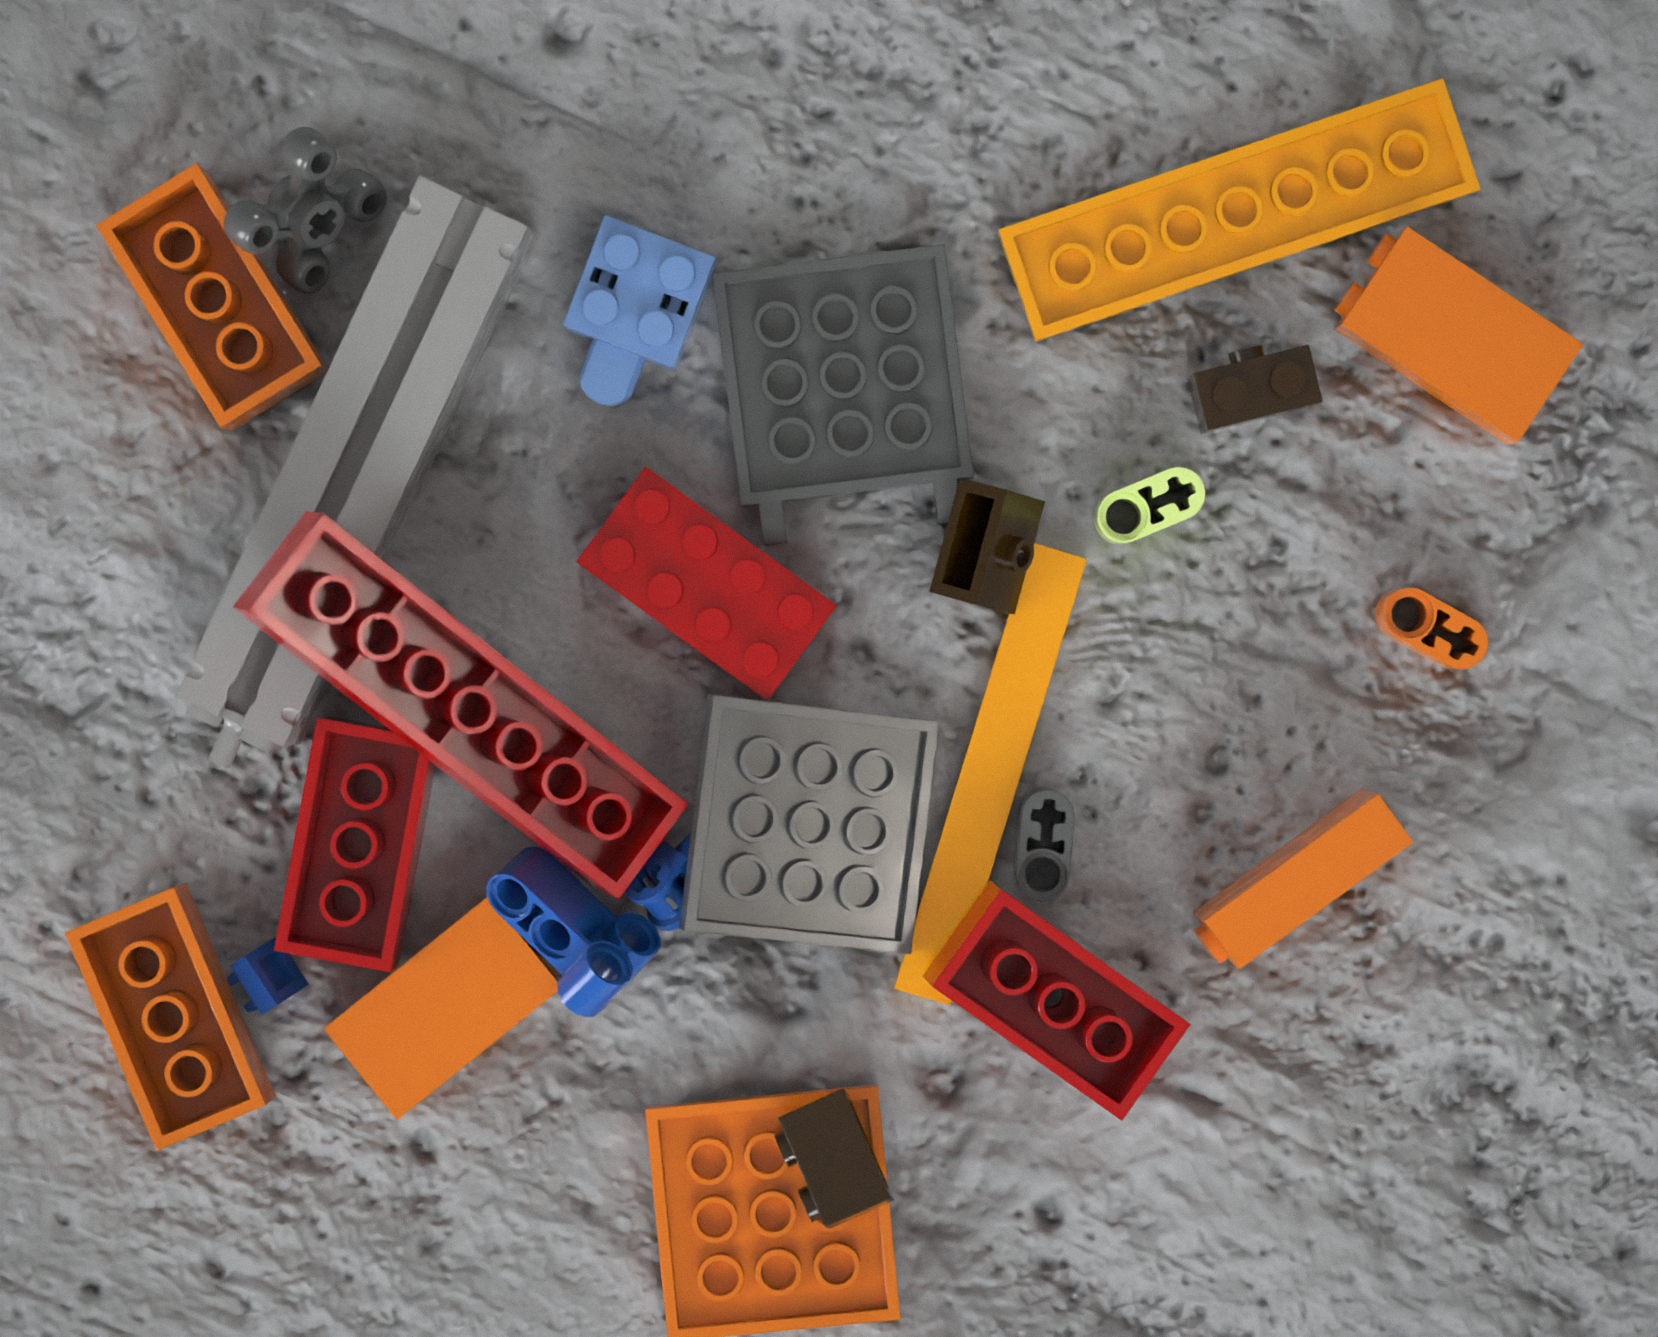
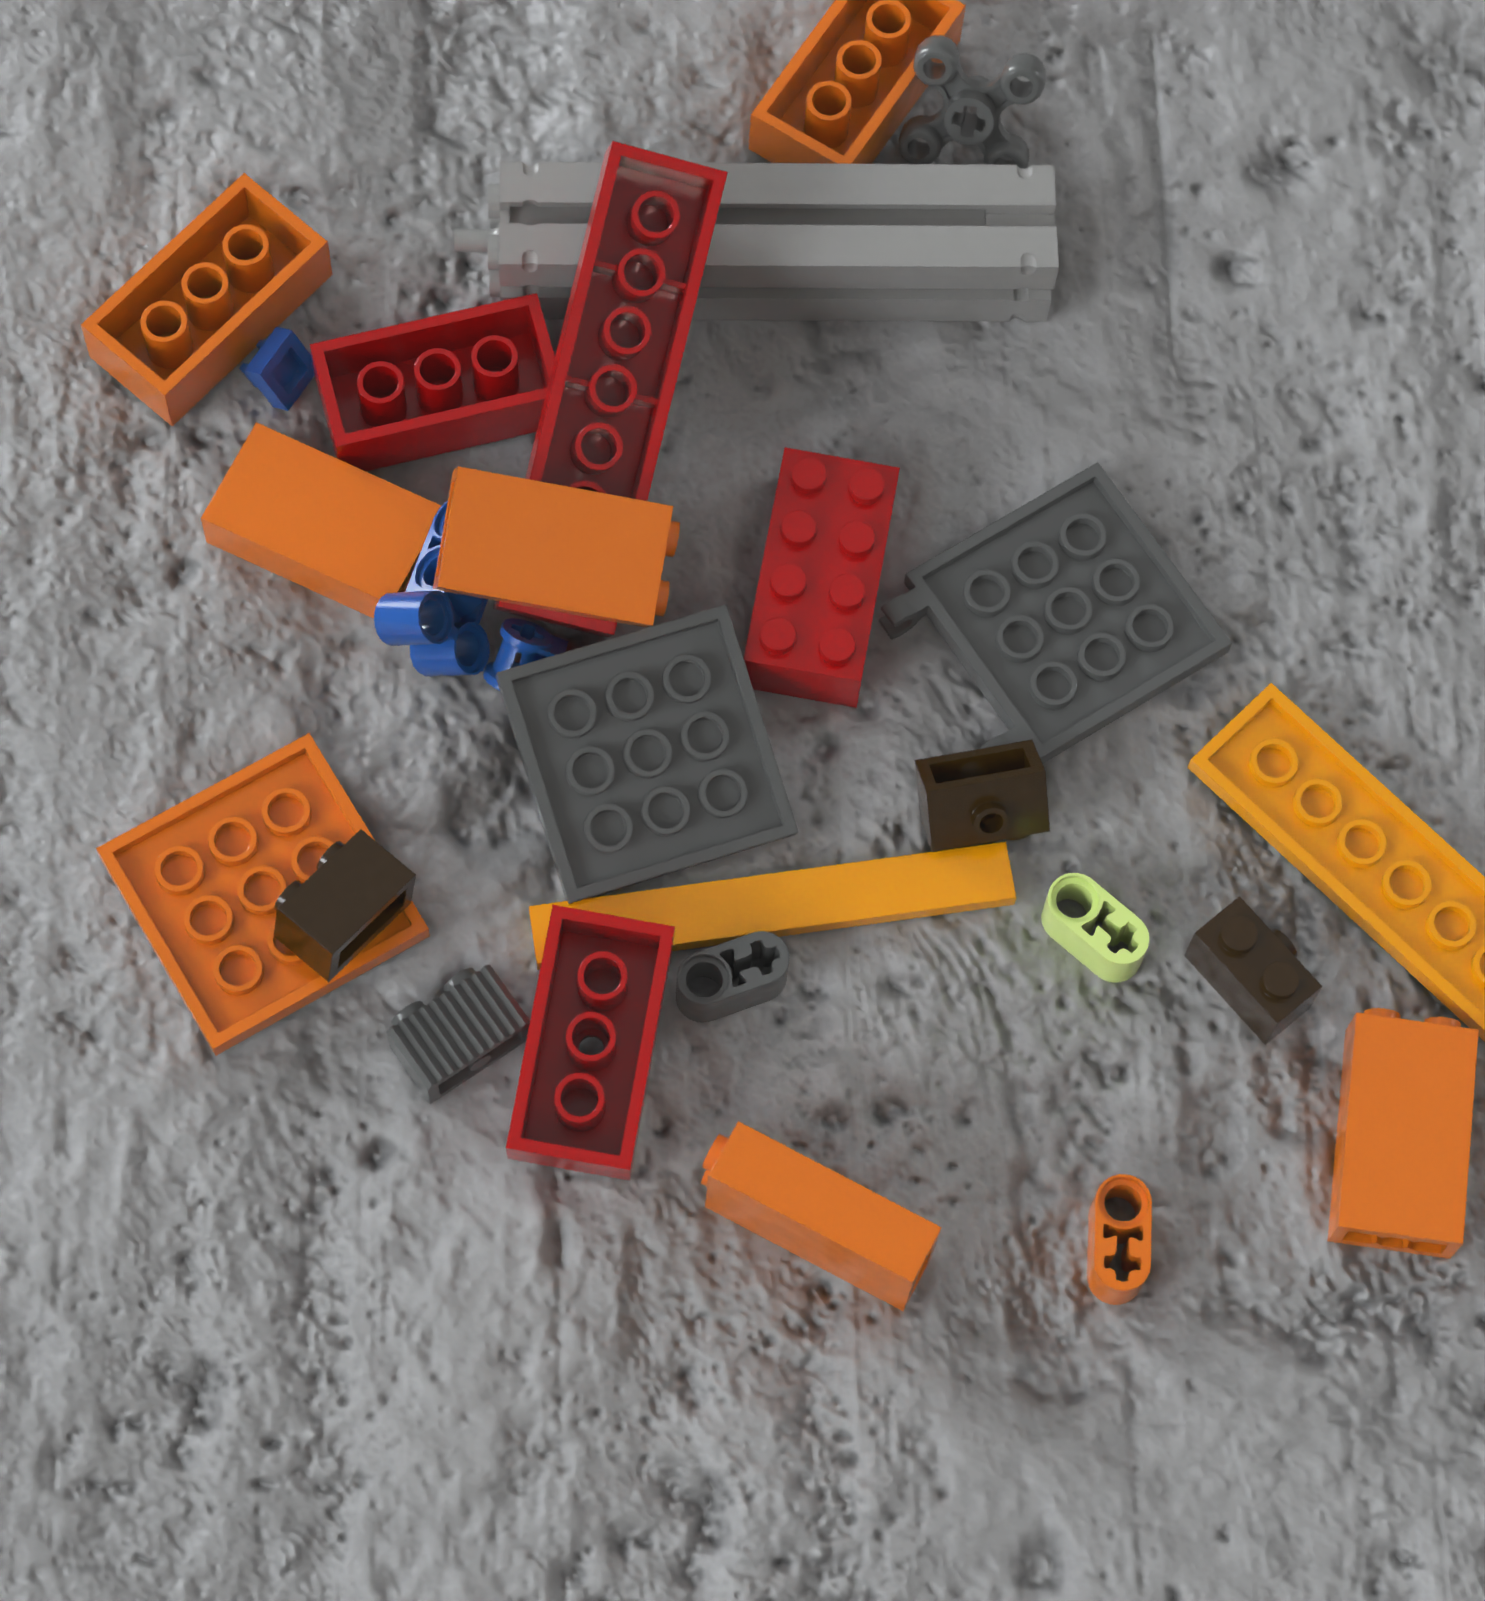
camera: 60 degrees right, 20 degrees down
(601, 832) = (555, 547): none -> orange brick
(632, 307) = (1036, 409): medium blue brick -> none
(983, 1103) = (457, 1032): none -> dark grey brick

